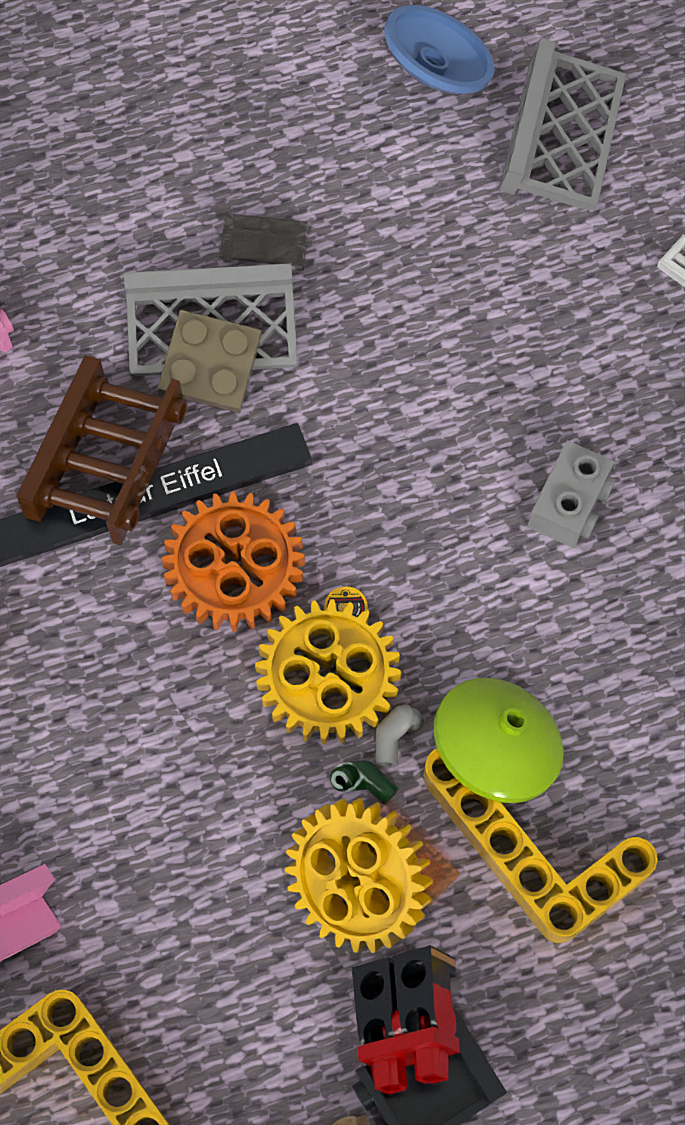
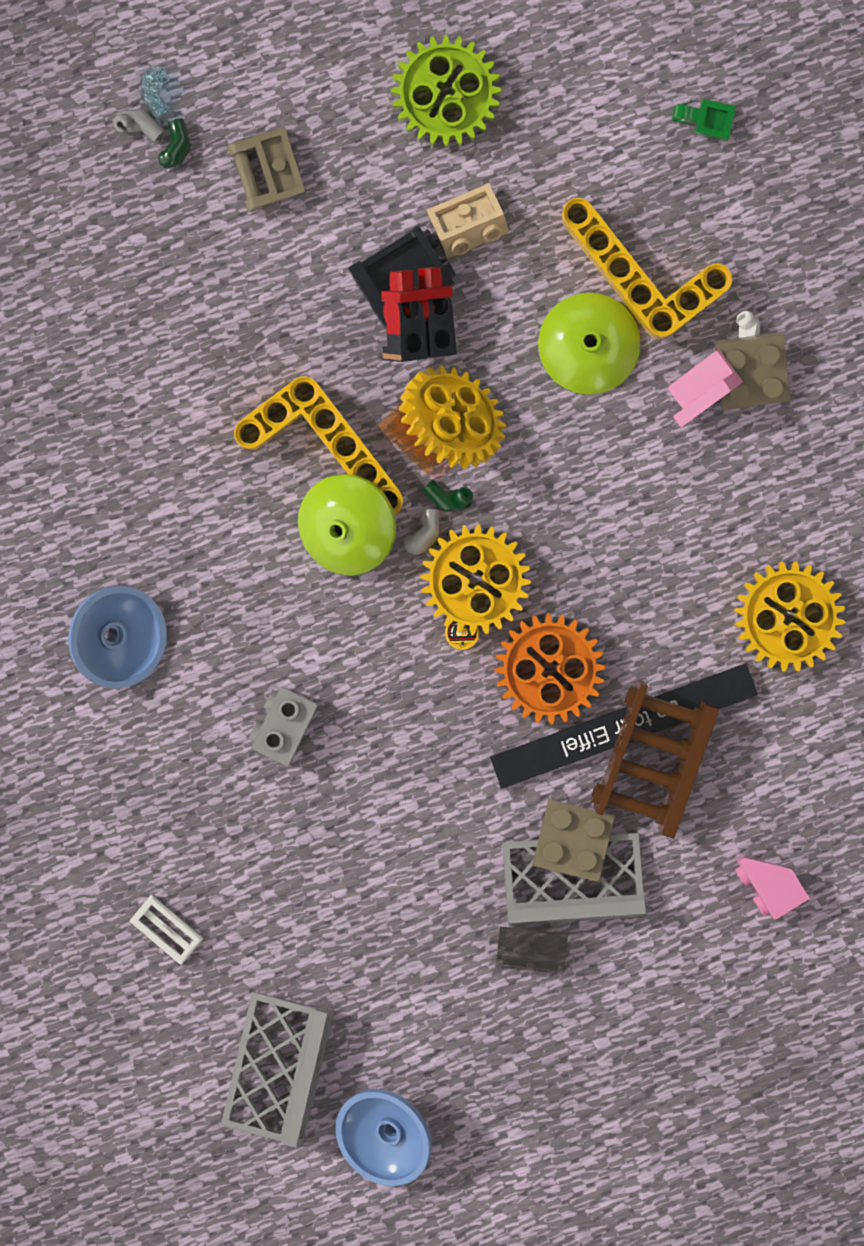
camera: 175 degrees left, 20 degrees up
(174, 1023) = (586, 368): none -> lime dish

